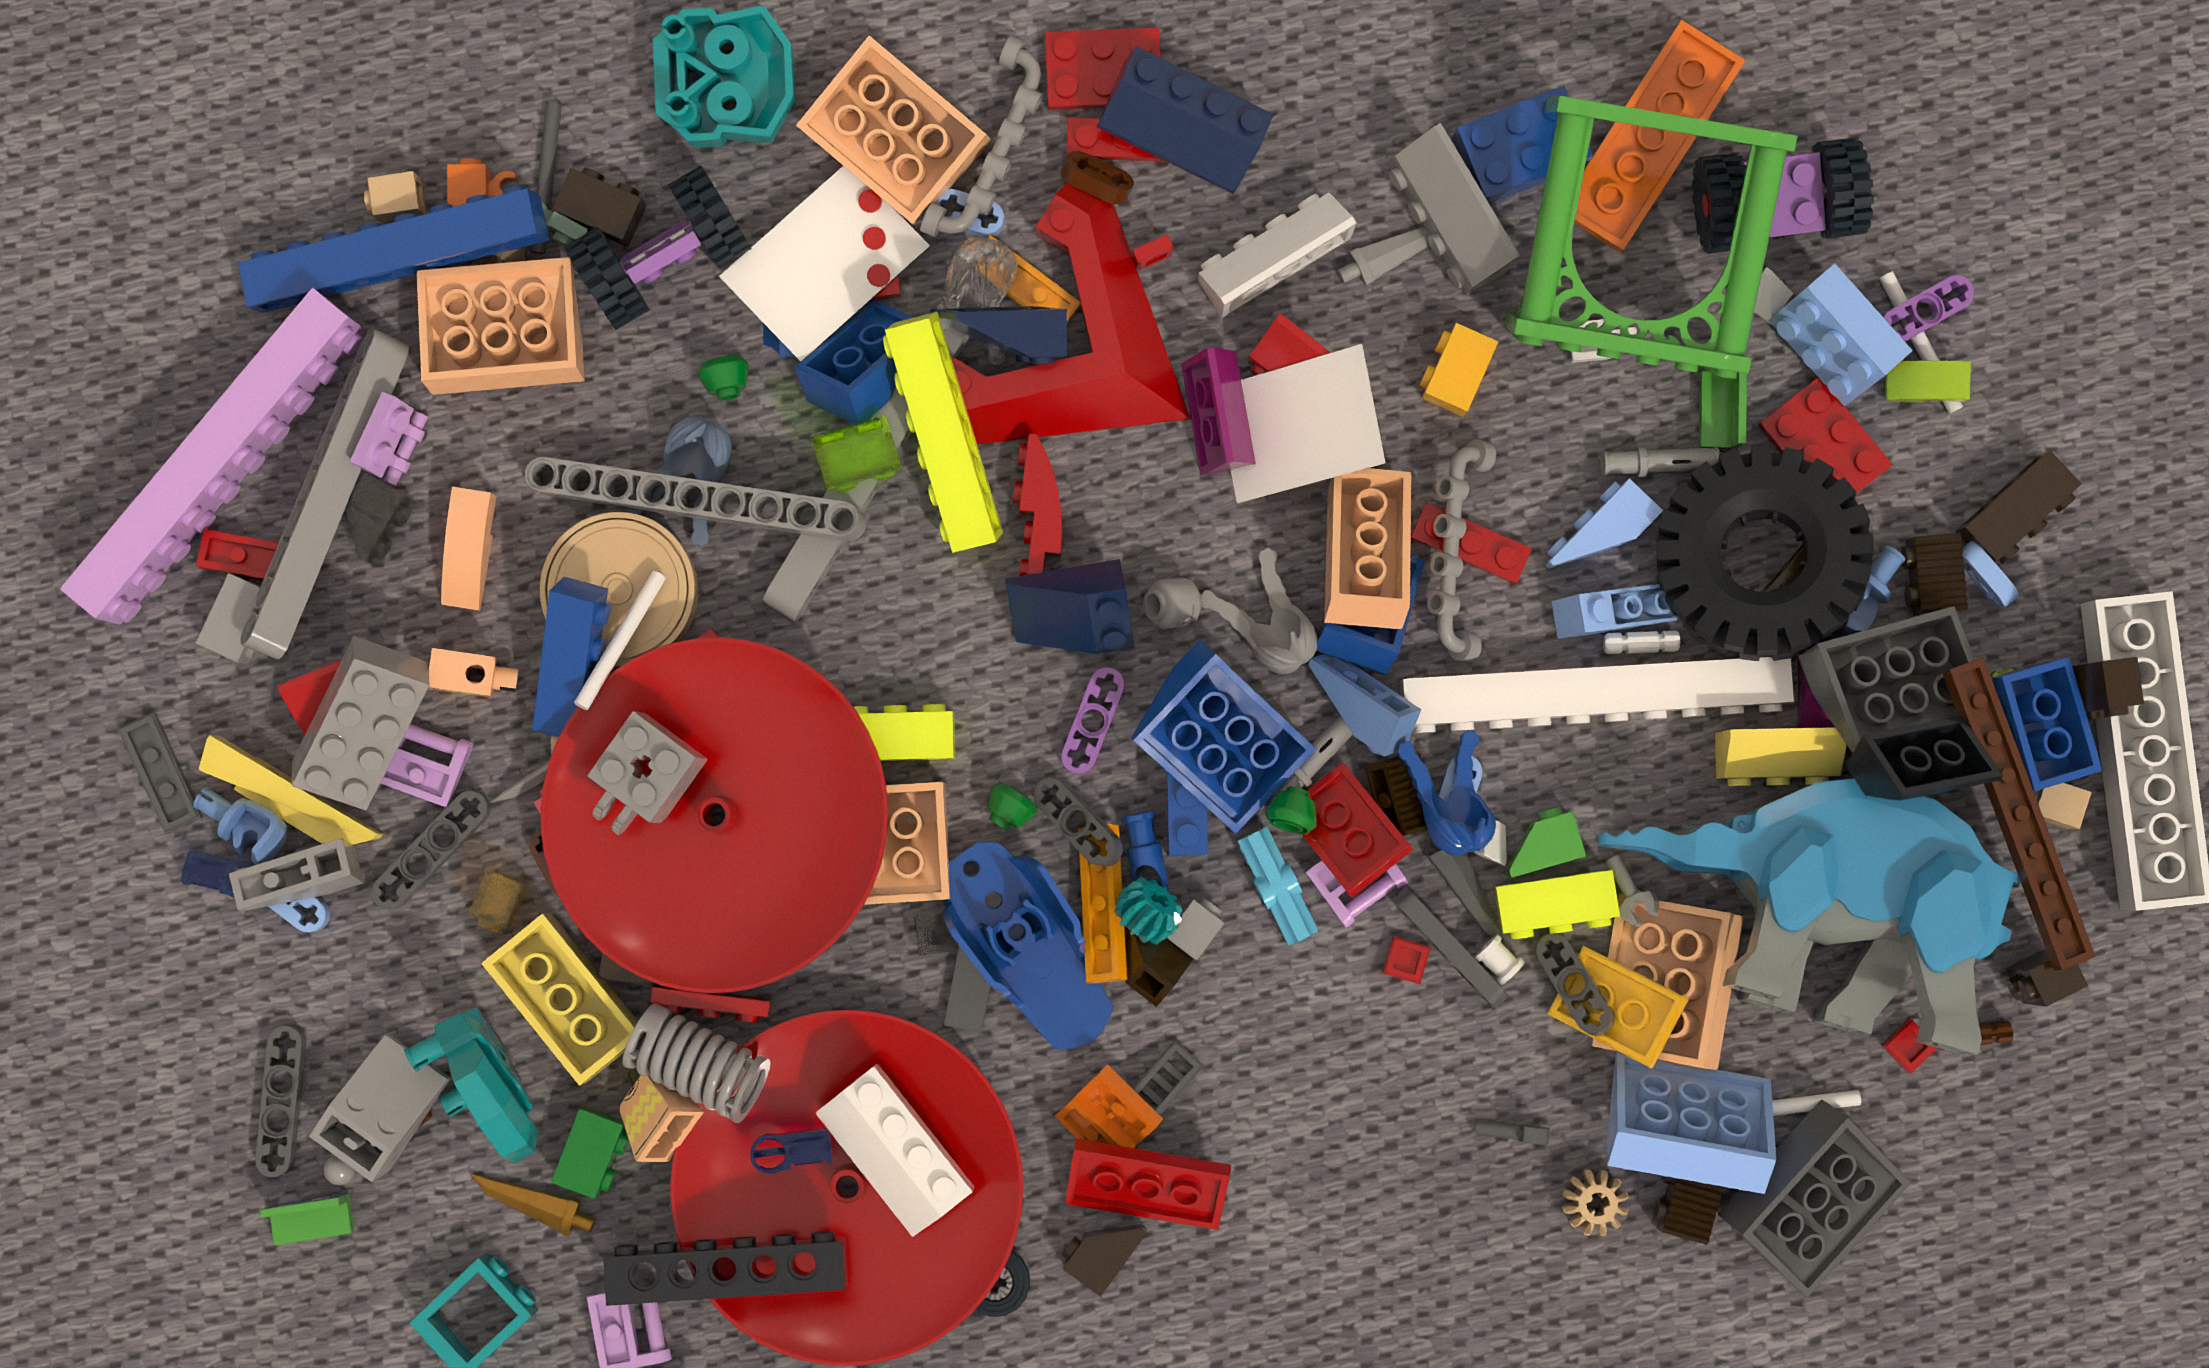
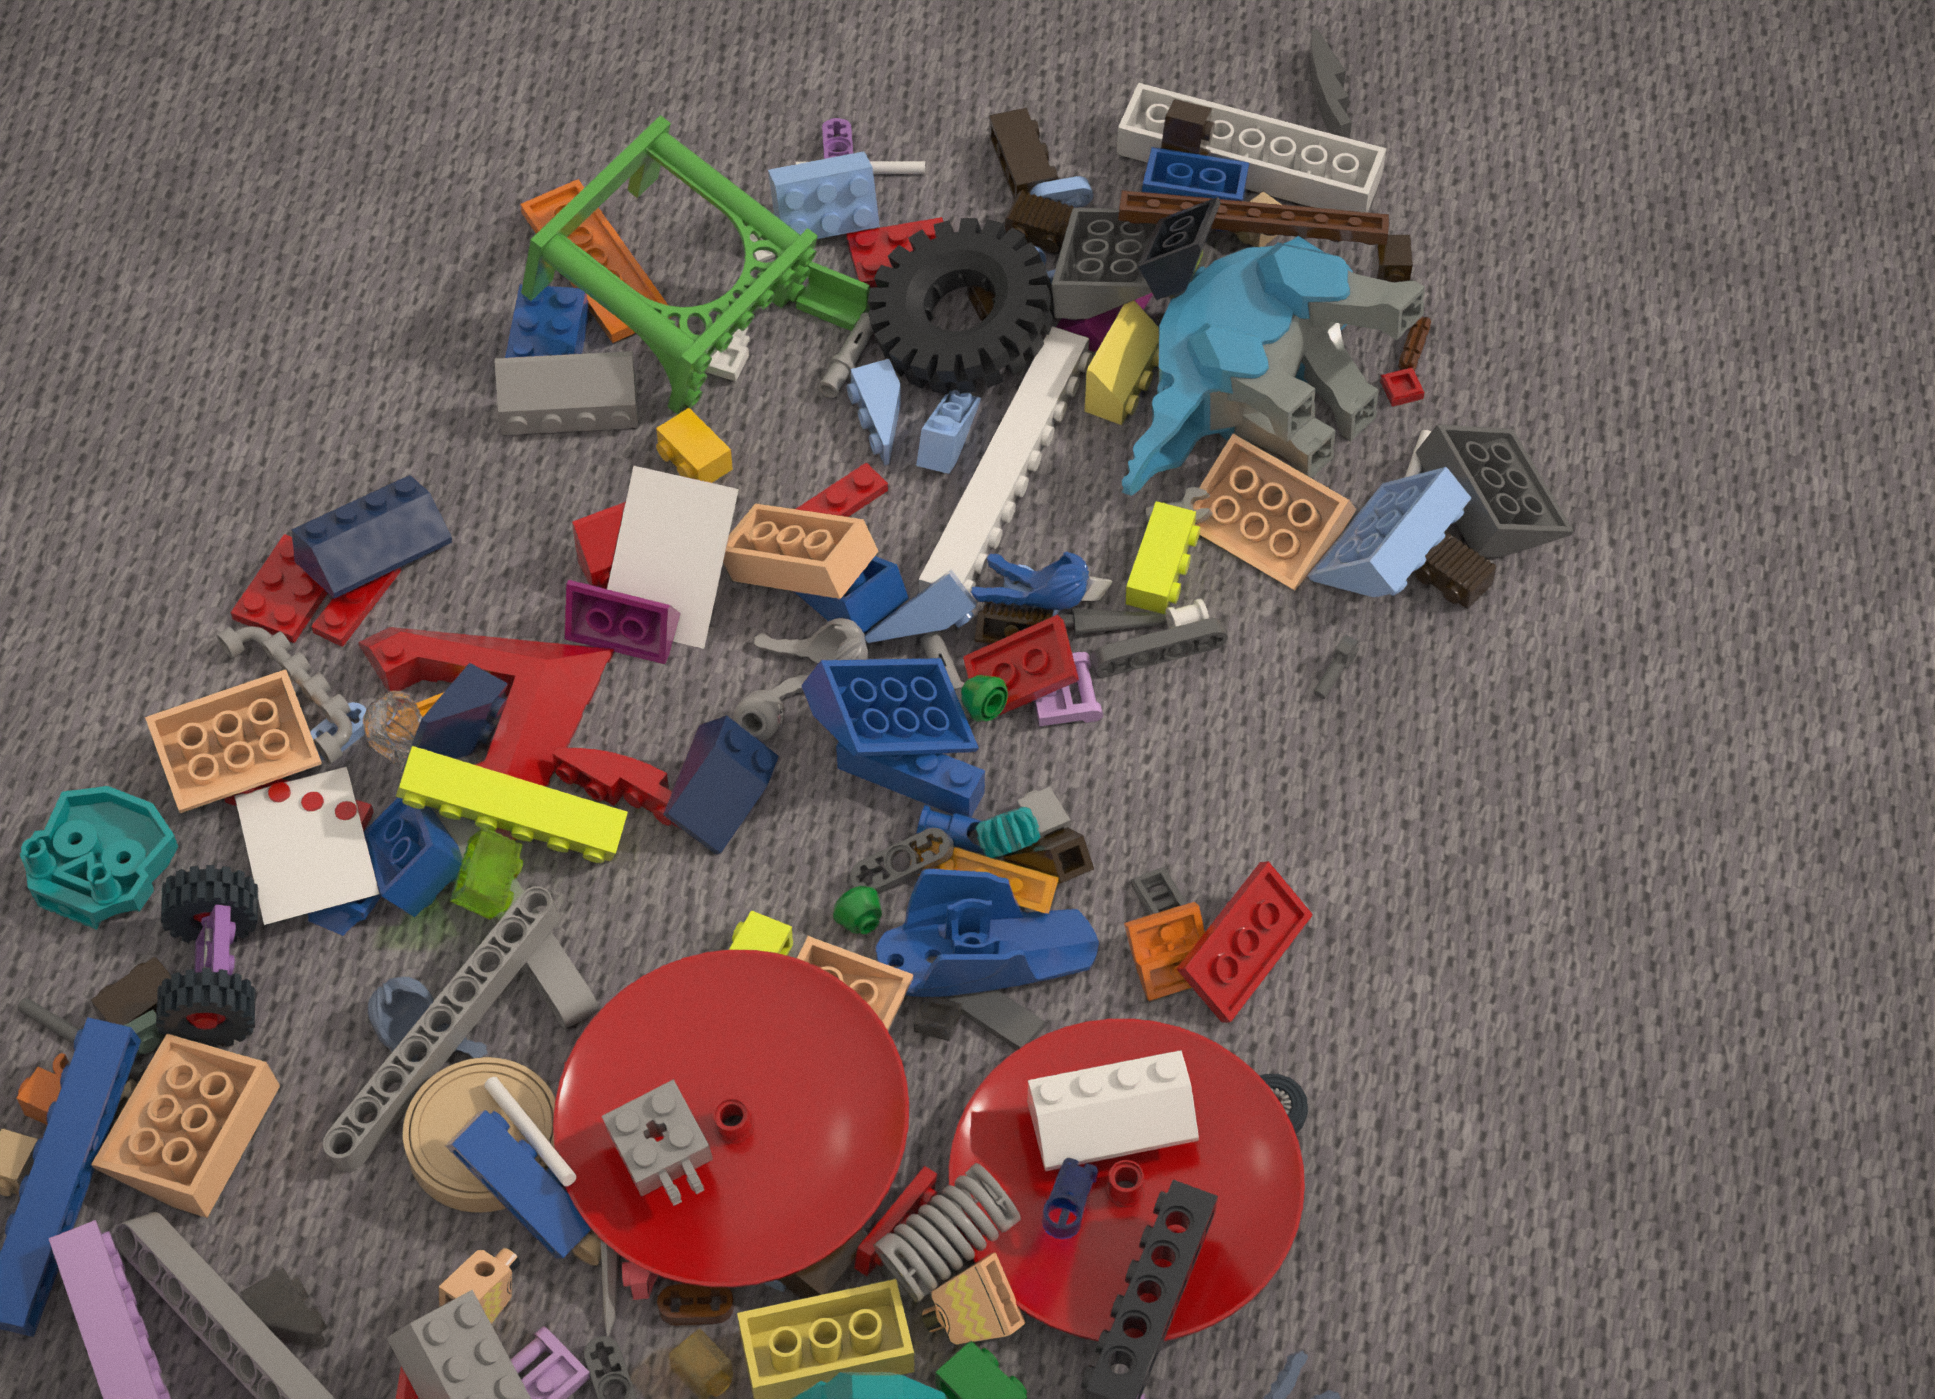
camera: 65 degrees left, 30 degrees down
(381, 436) = (222, 1257): lavender plate -> none
(467, 547) = (363, 1245): light nougat slope -> none
(724, 376) = (351, 968): green cone -> none
(1094, 690) = (820, 808): medium lavender beam -> none
(1097, 177) = (374, 624): reddish brown beam -> none
(1101, 1255) = (1292, 1009): dark brown slope -> none
(1152, 252) = (461, 611): red tile -> none
(1276, 253) = (519, 526): white slope -> none
(1277, 886) = (1040, 745): medium azure piece -> none
(1381, 257) = (570, 466): light grey bar -> none
(1406, 959) = (1152, 686): red tile -> none
(1477, 456) = (771, 468): light grey bar -> none
(1547, 843) = (1110, 545): bright green slope -> none
(1580, 1013) = (1223, 562): dark grey beam -> none
(1606, 1209) = (1424, 634): tan gear -> none
(1641, 642) = (984, 425): white axle -> none
(1641, 1008) = (1269, 549): yellow tile -> none
(1816, 193) = (676, 218): black plate -> none
(1929, 381) = (893, 166): lime slope -> none

